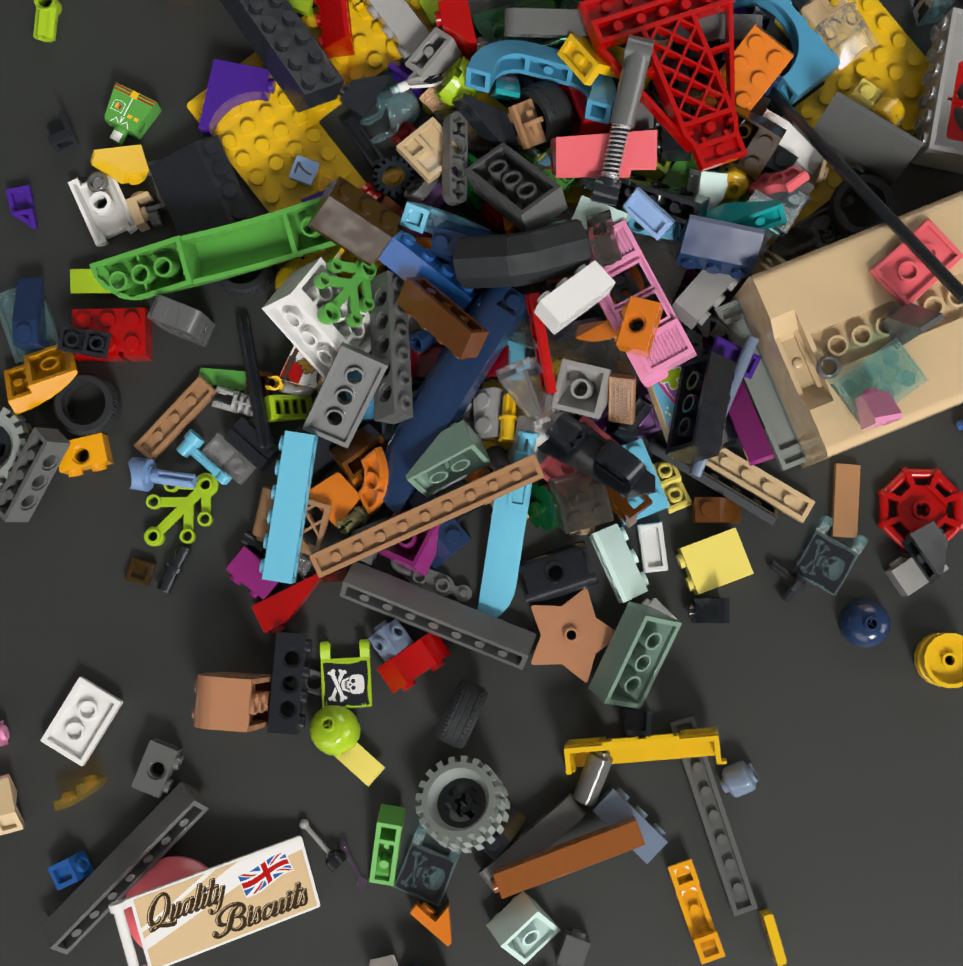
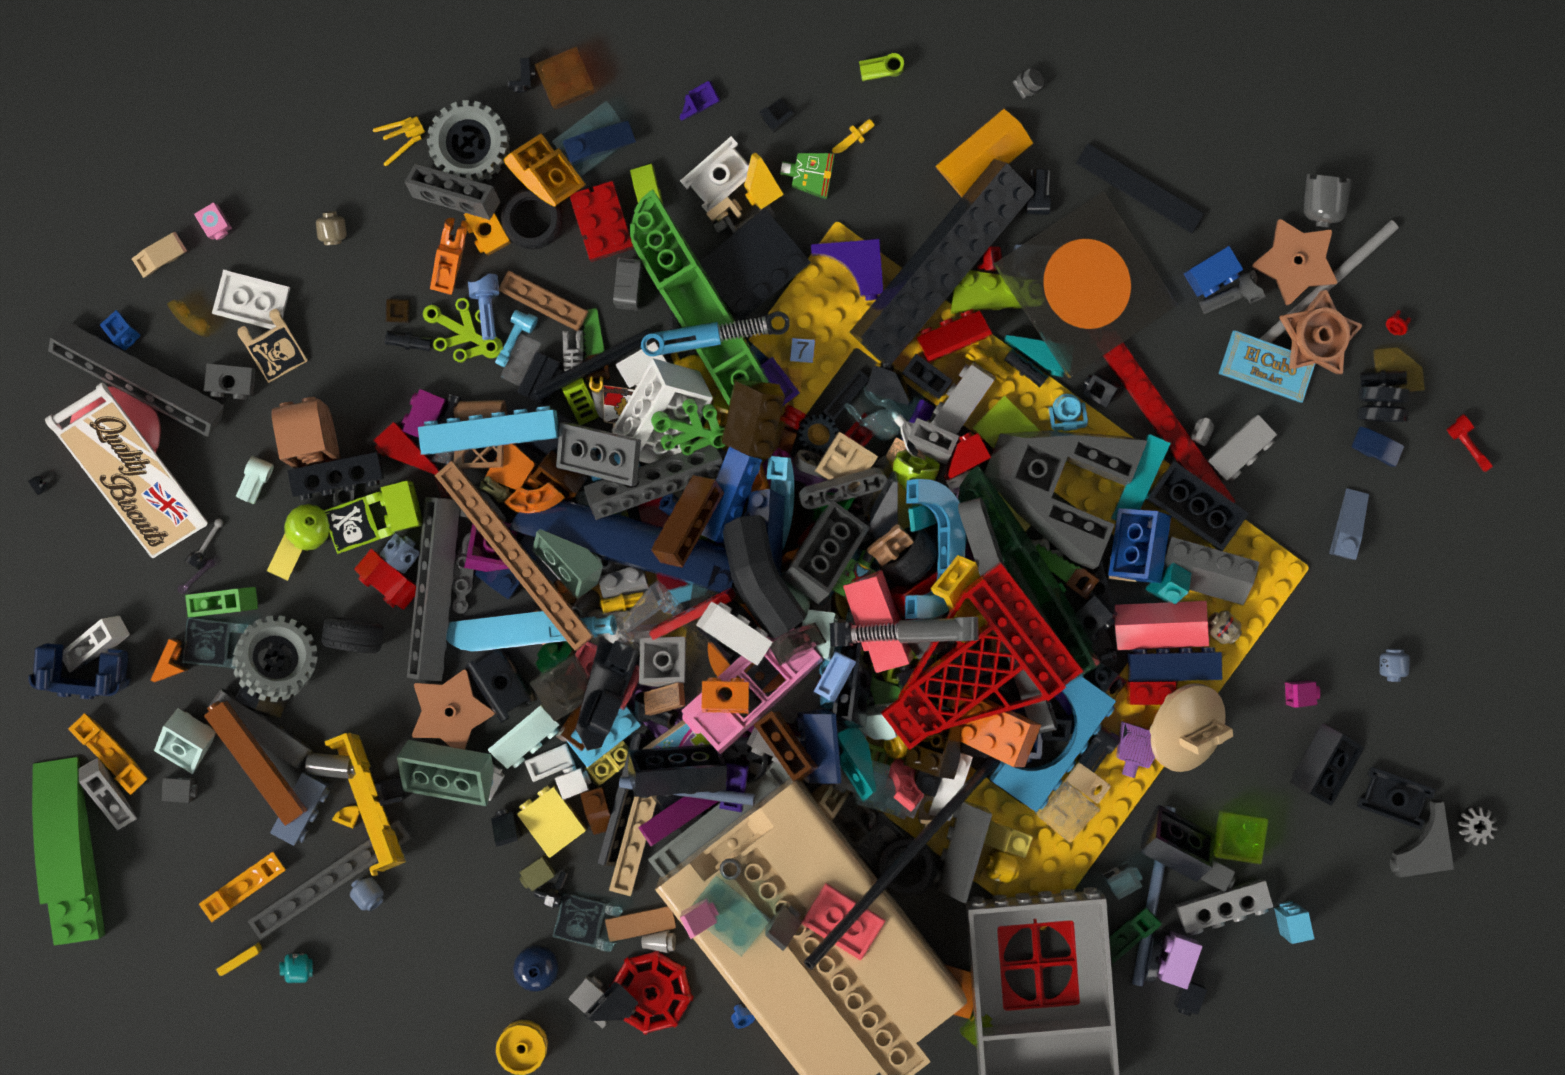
camera: 65 degrees right, 5 degrees up
(33, 615) = (331, 228): none -> dark tan head
(84, 342) = (583, 203): black slope -> none
(92, 177) = (738, 172): dark grey piece -> none
(100, 501) = (448, 257): none -> orange plate
(106, 61) = (856, 135): none -> yellow piece
(140, 711) = (274, 350): none -> flag
(255, 238) = (712, 334): none -> piece
(264, 768) = (256, 474): none -> light aqua piece
(271, 341) = (634, 366): none -> white brick
(341, 622) = (401, 506): none -> lime brick
(367, 51) = (927, 377): none -> black brick
(650, 776) = (347, 816): none -> yellow tile
(680, 527) = (573, 781): none -> white brick
(709, 277) = (785, 746): none -> reddish brown brick
(765, 593) = (536, 873): none -> olive brick
(798, 877) = (296, 968): none -> teal head
(870, 486) = (660, 941): none -> light grey cone

